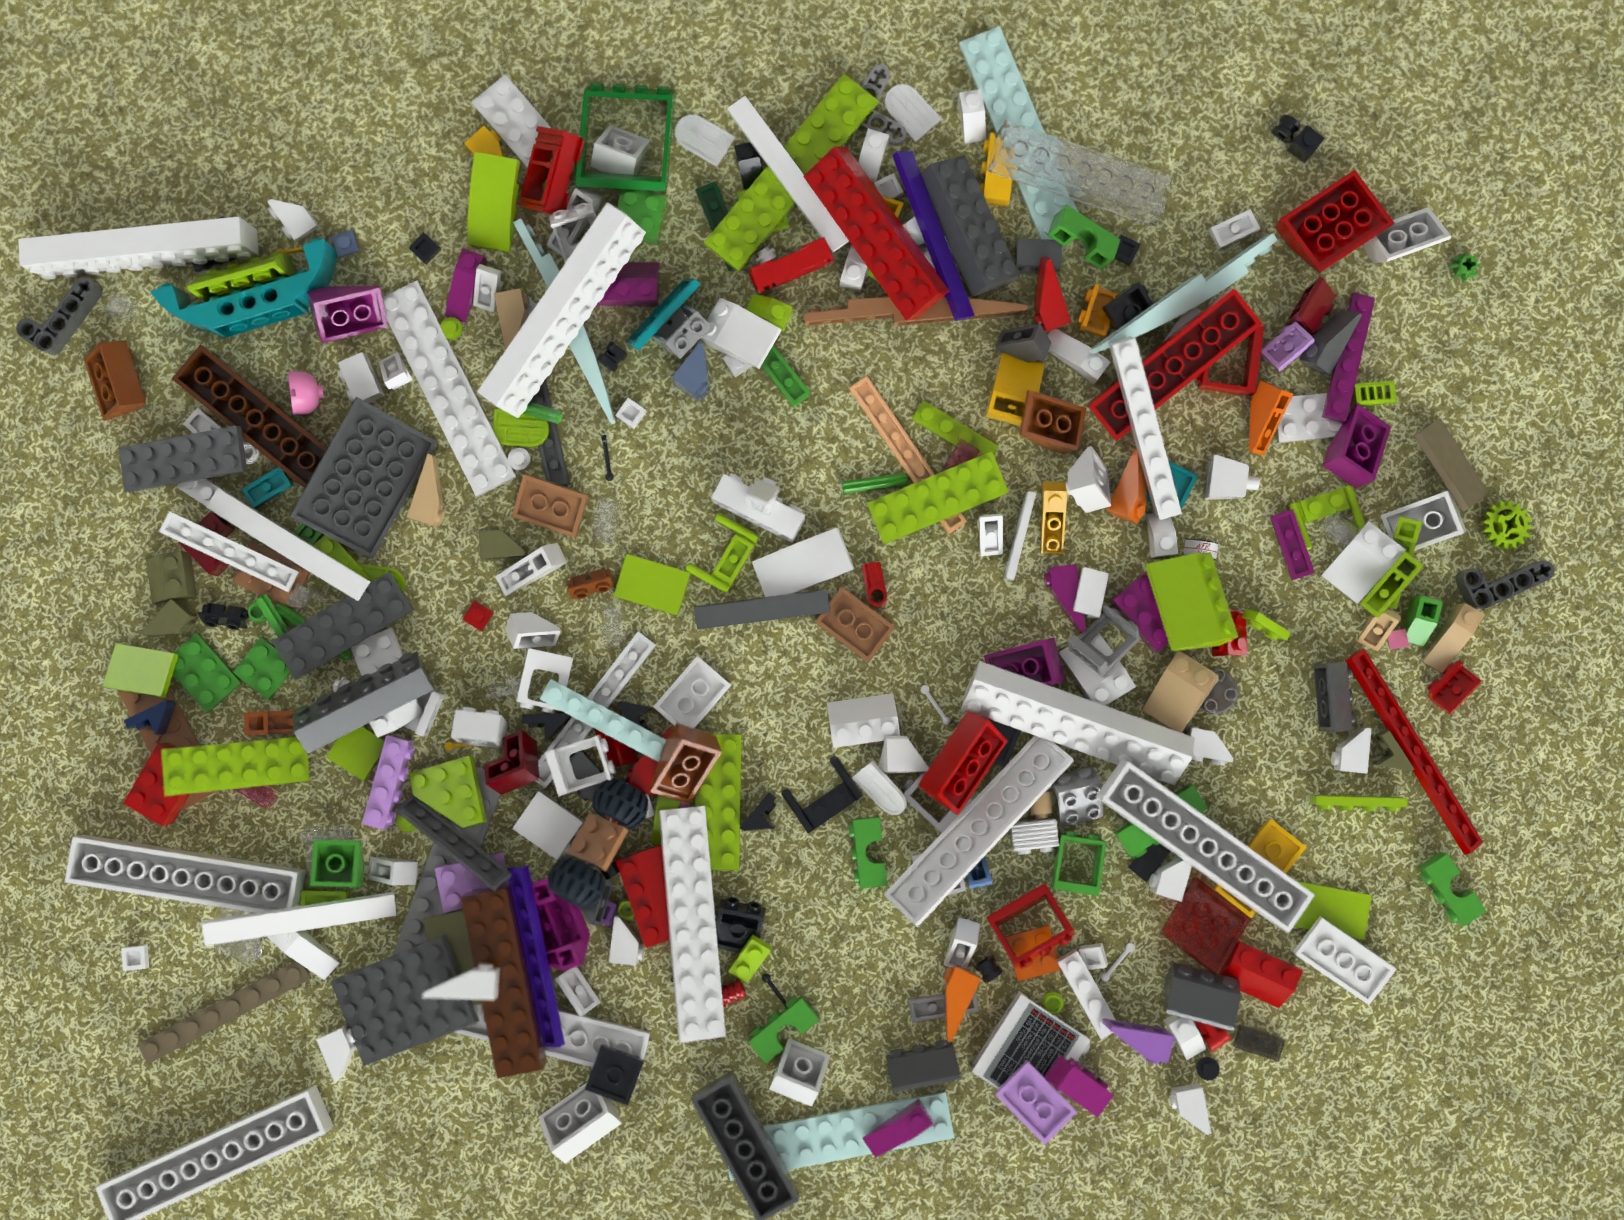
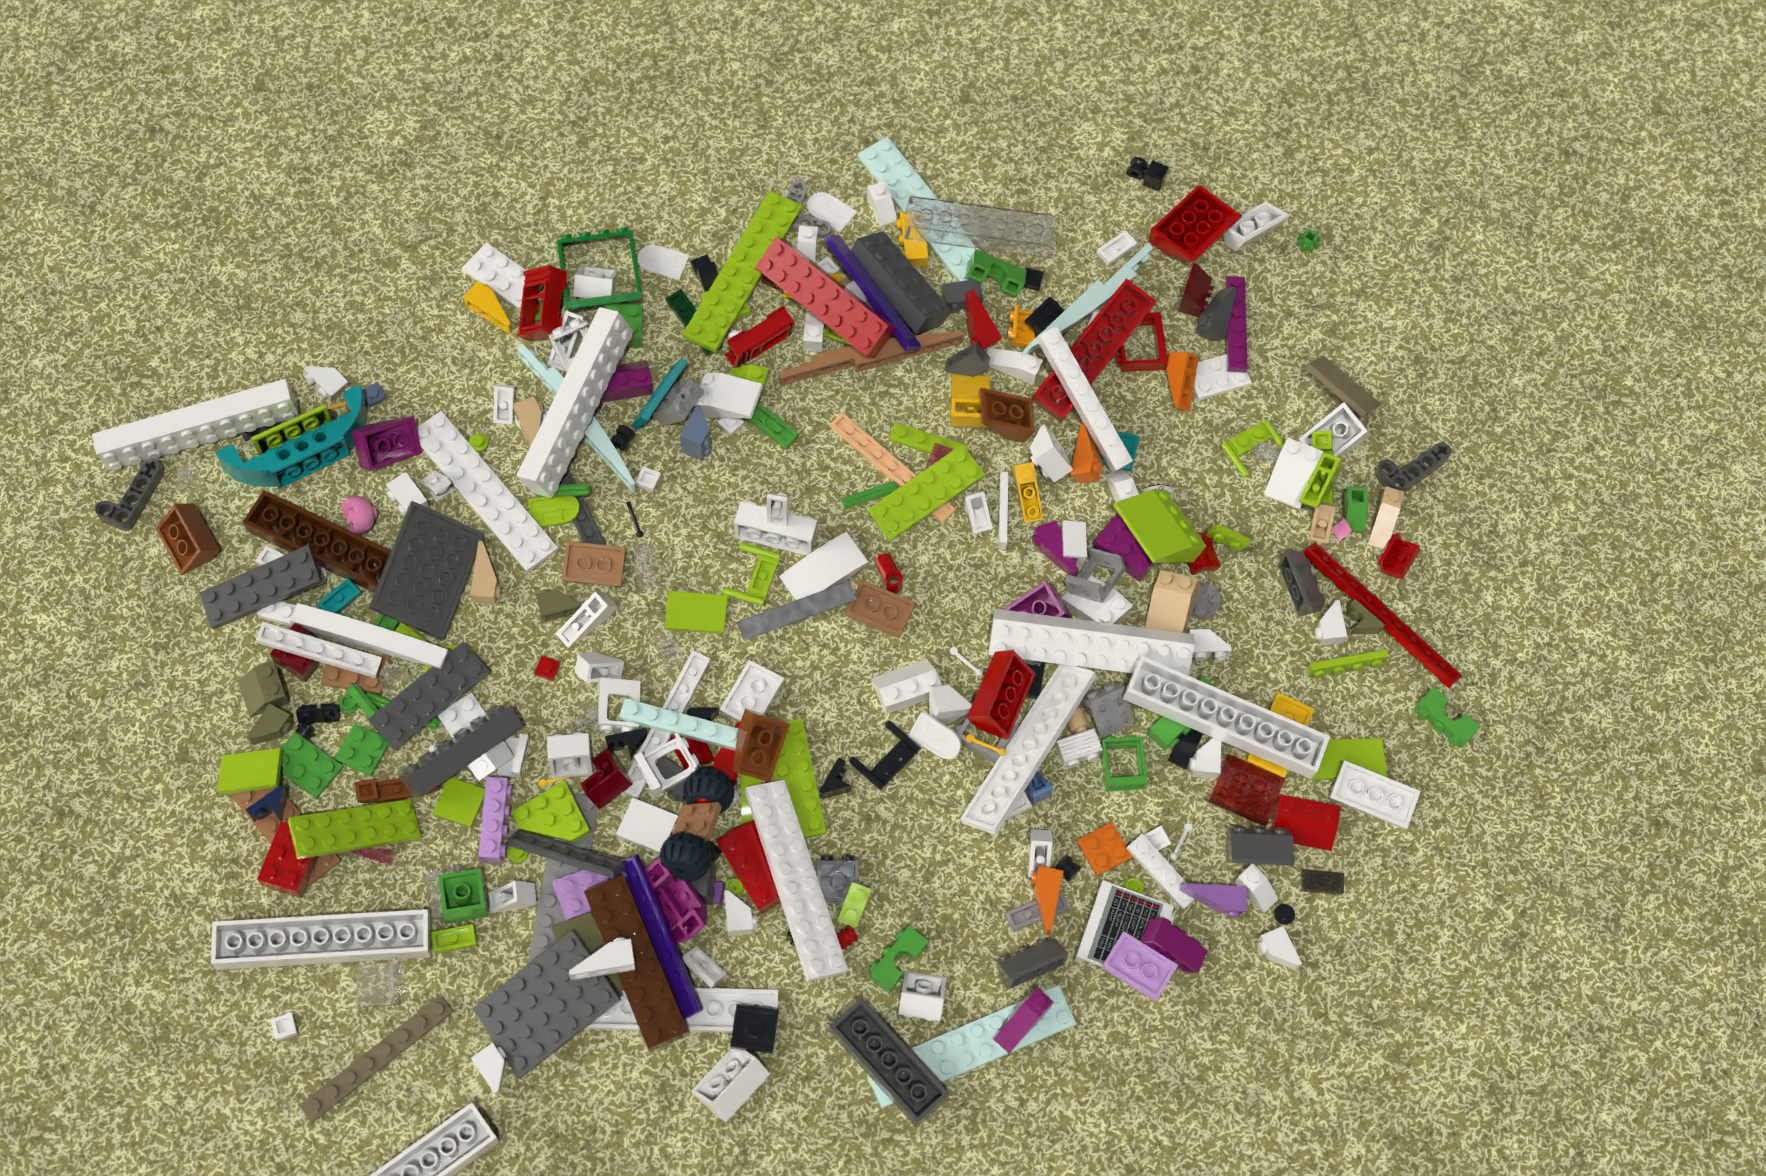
camera: 20 degrees left, 20 degrees down
(206, 635) = (305, 731): none -> black plate
(298, 918) = (436, 948): white tile -> none
(306, 951) = (442, 983): white slope -> none
(424, 248) = (443, 385): black plate -> none
(463, 285) = (483, 405): magenta slope -> none
(492, 202) = (496, 336): lime slope -> none
(519, 459) = (558, 534): white plate -> none
(600, 582) = (648, 618): dark orange hinge -> none
(767, 978) = (872, 922): black hinge -> none
(786, 172) = (740, 268): white tile -> none
(864, 832) = (942, 808): bright green arch -> none
(917, 804) = (970, 738): none -> yellow hinge
(1018, 907) = (1083, 809): red window -> none
(1213, 1035) = (1281, 881): red piece -> none
(1228, 479) = (1165, 433): white torso -> none
(1287, 346) = (1183, 322): lavender bracket -> none
(1292, 544) = (1232, 473): magenta plate -> none
(1357, 396) = (1256, 356): lime slope -> none
(1357, 447) = (1263, 388): magenta slope -> none
(1515, 520) = (1393, 424): lime gear -> none

